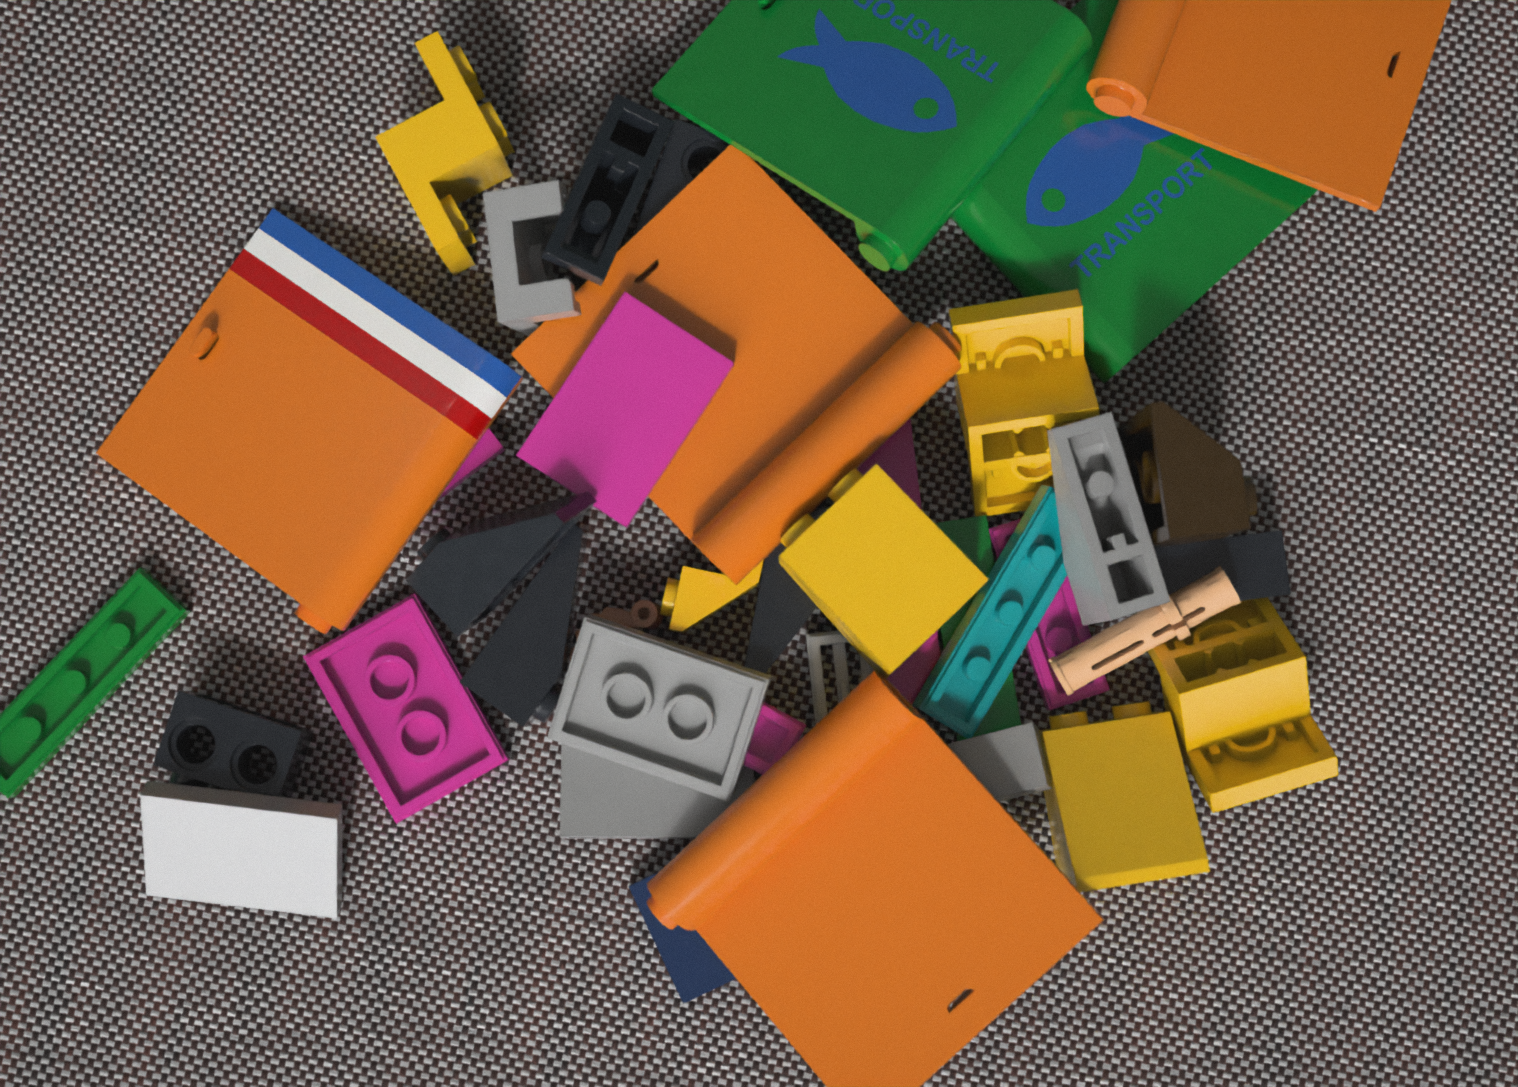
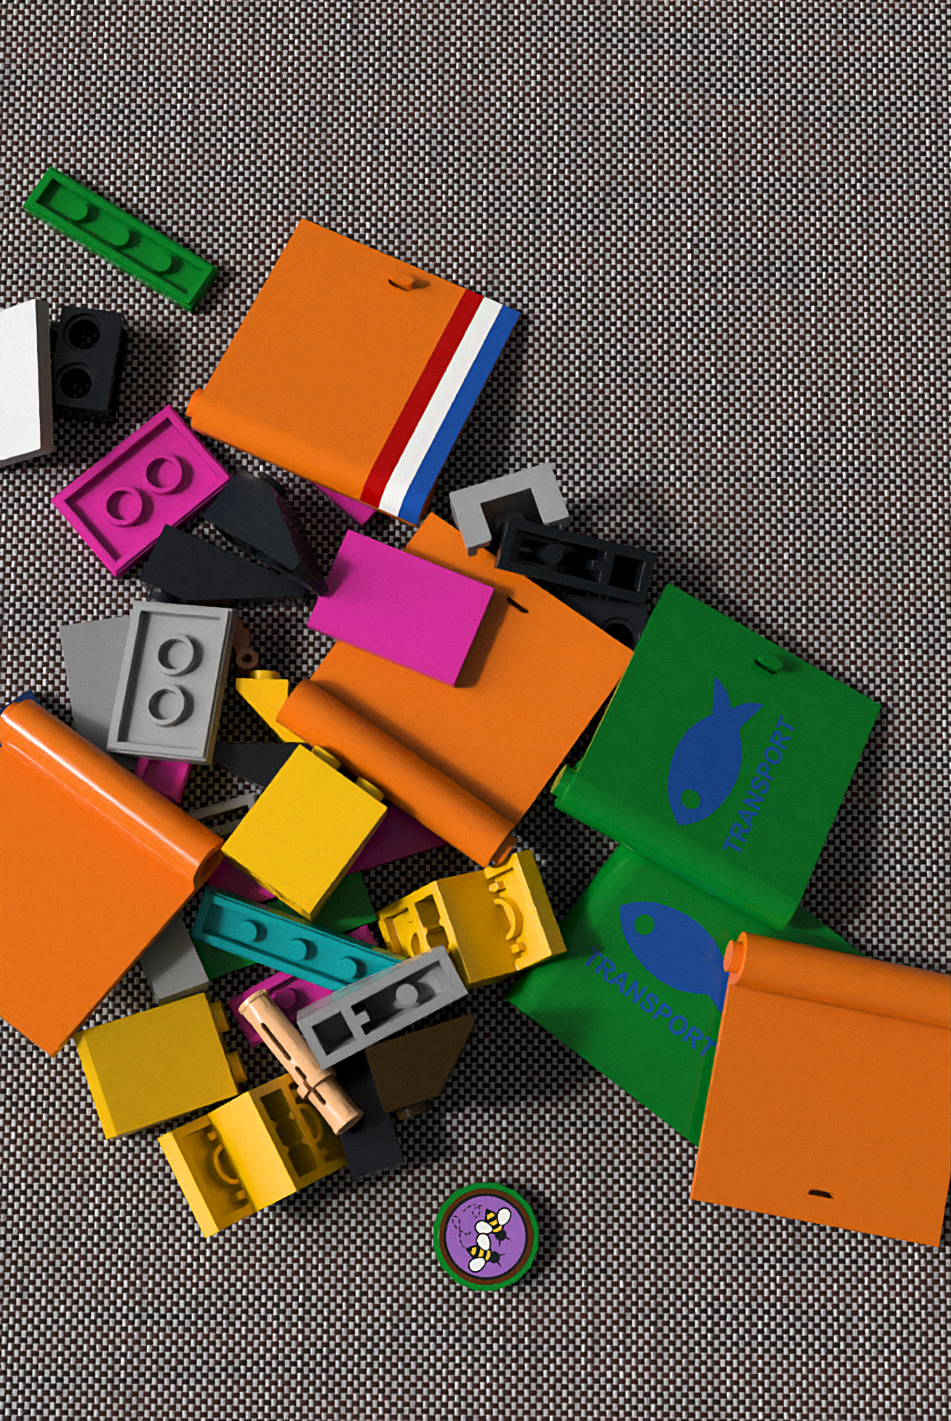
camera: 85 degrees right, 5 degrees down
(448, 152) = (582, 433): yellow bracket -> none
(1372, 456) = (485, 1236): none -> tile

